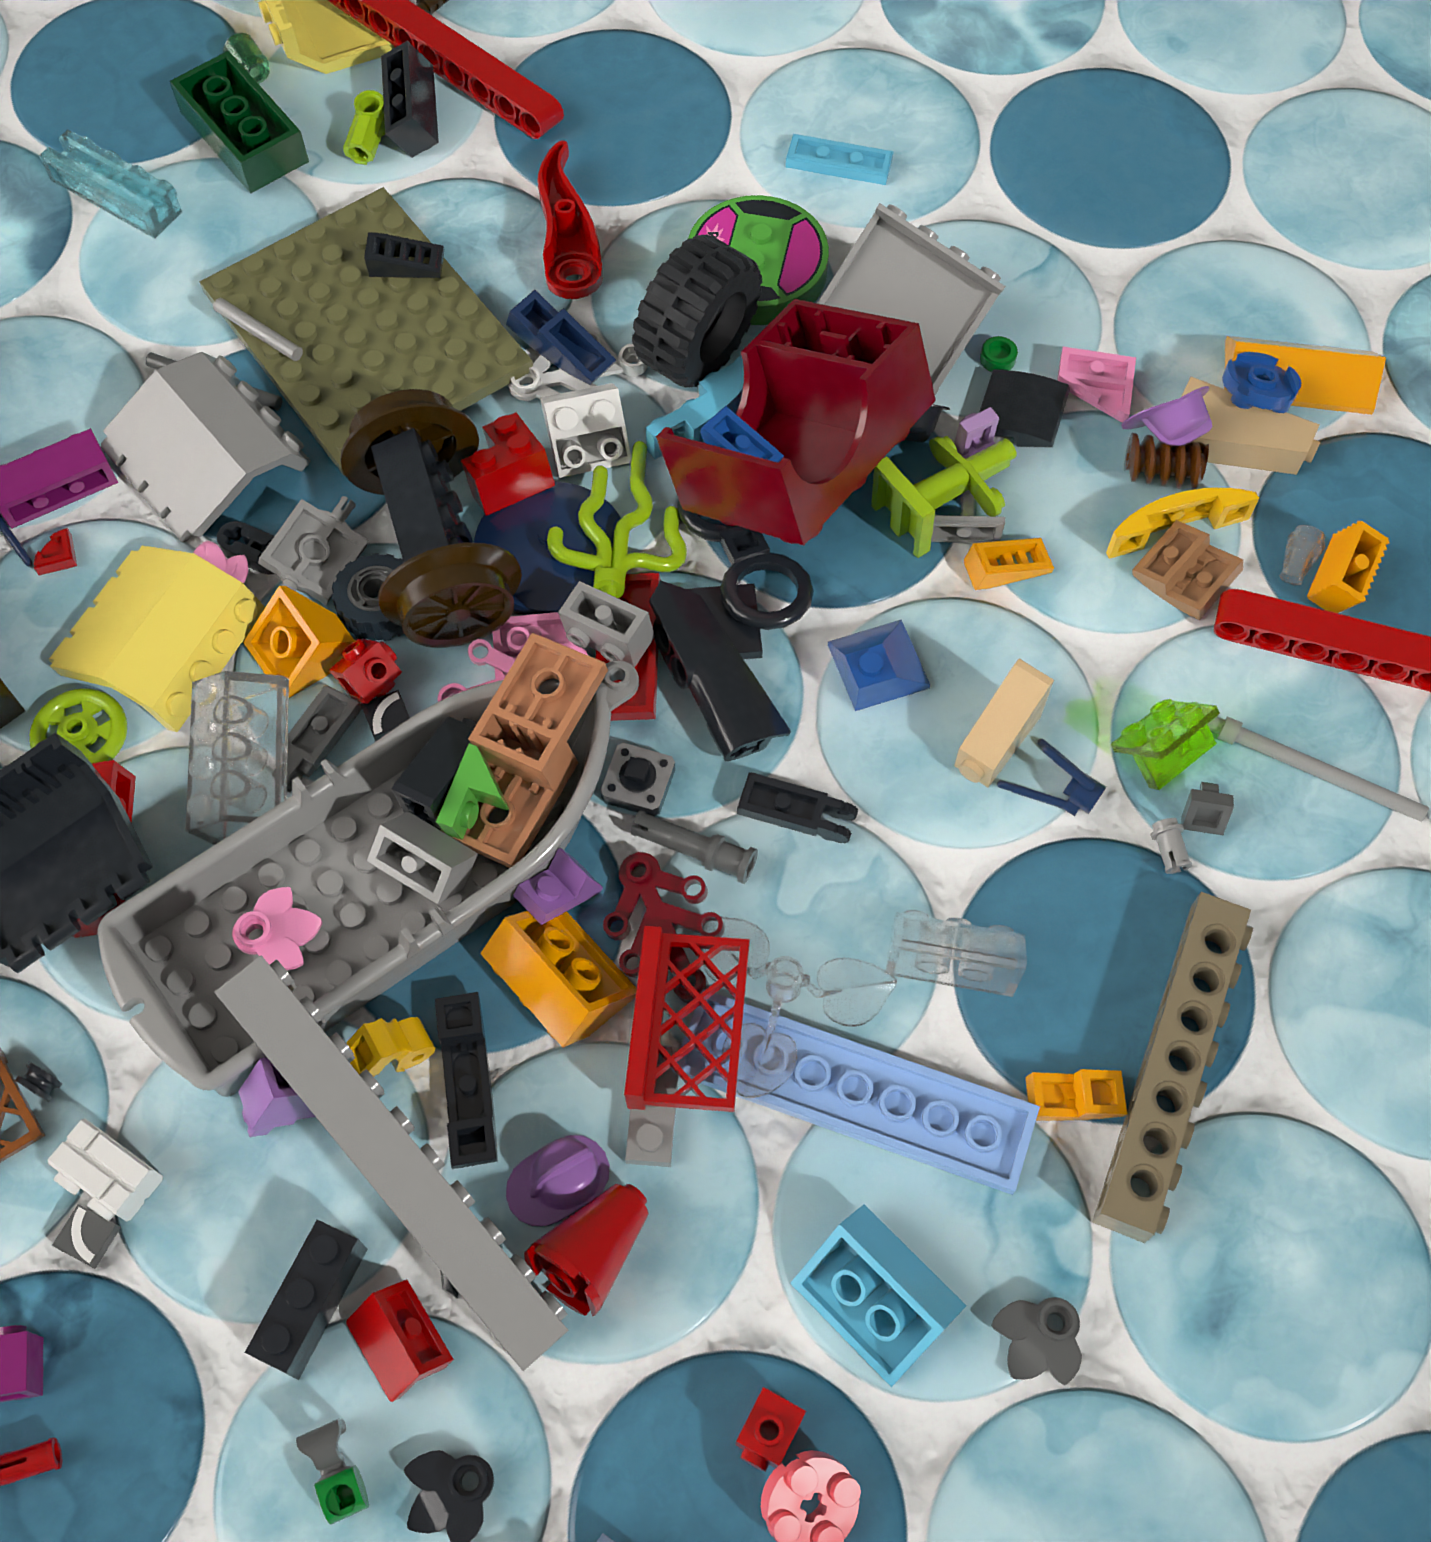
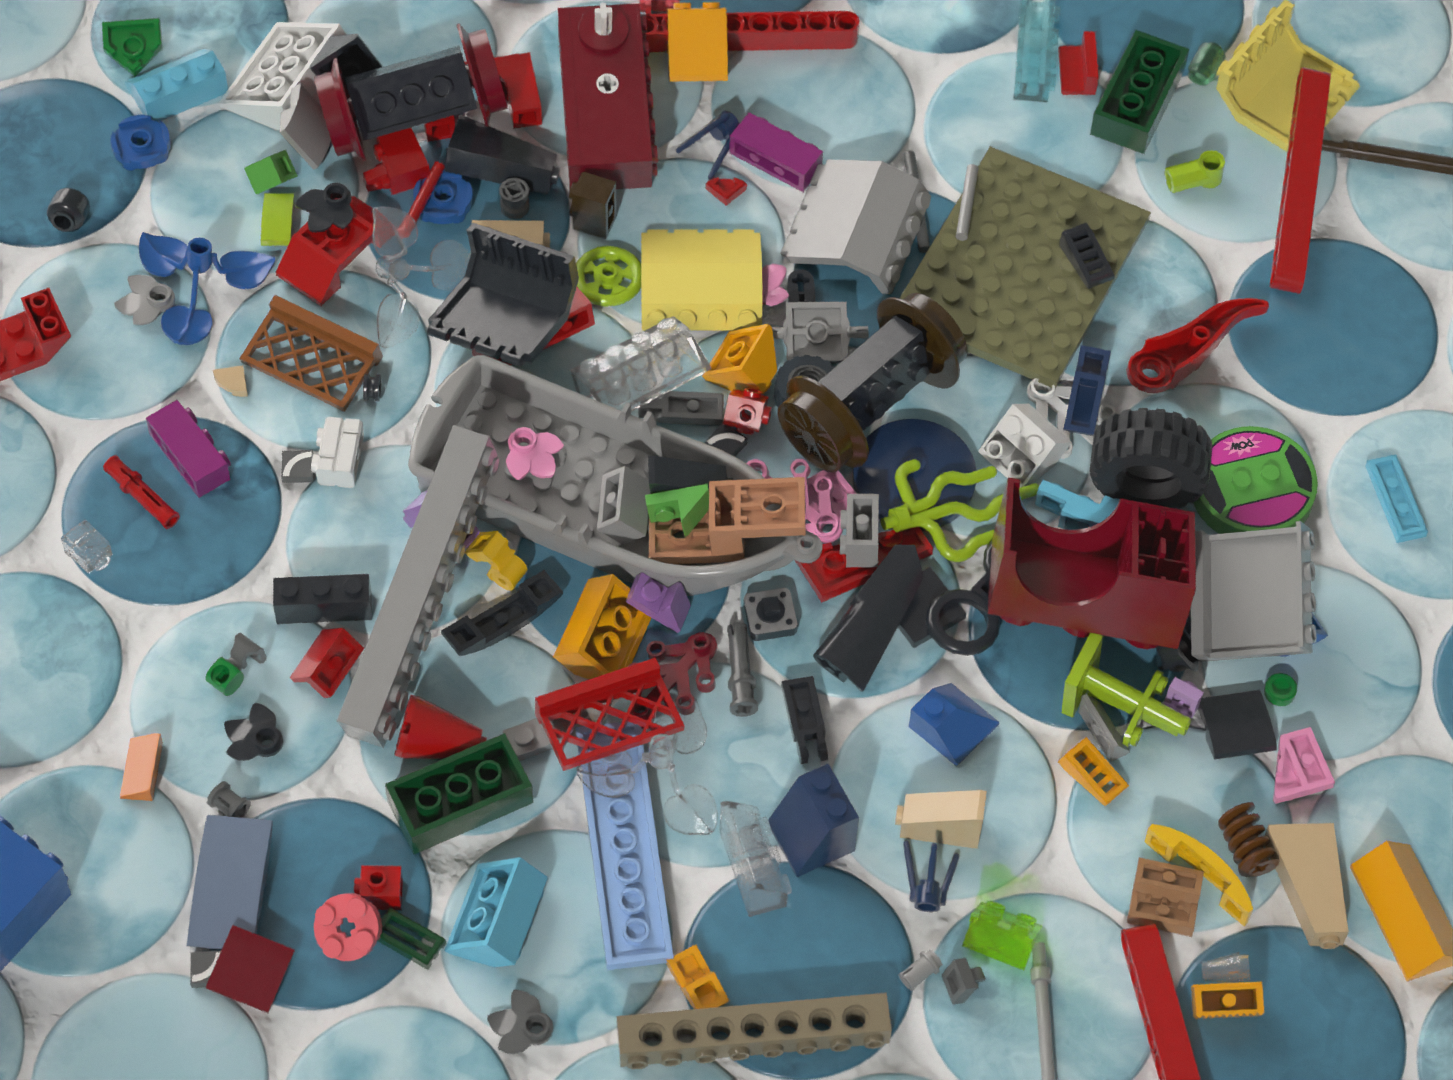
camera: 60 degrees right, 5 degrees down
(167, 156) = (1079, 67): none -> red panel
(409, 99) = (1236, 185): black brick -> none
(511, 466) = (953, 413): red brick -> none
(557, 1180) = (472, 700): medium lavender piece -> none
(692, 1259) = (459, 793): none -> dark green brick
(732, 433) = (1052, 540): blue slope -> none
(887, 1404) = (431, 953): none -> dark green tile
(949, 857) = (815, 821): none -> dark blue slope
(1177, 420) = (1271, 822): medium lavender piece -> none
(1260, 383) = (1346, 883): blue plate -> none

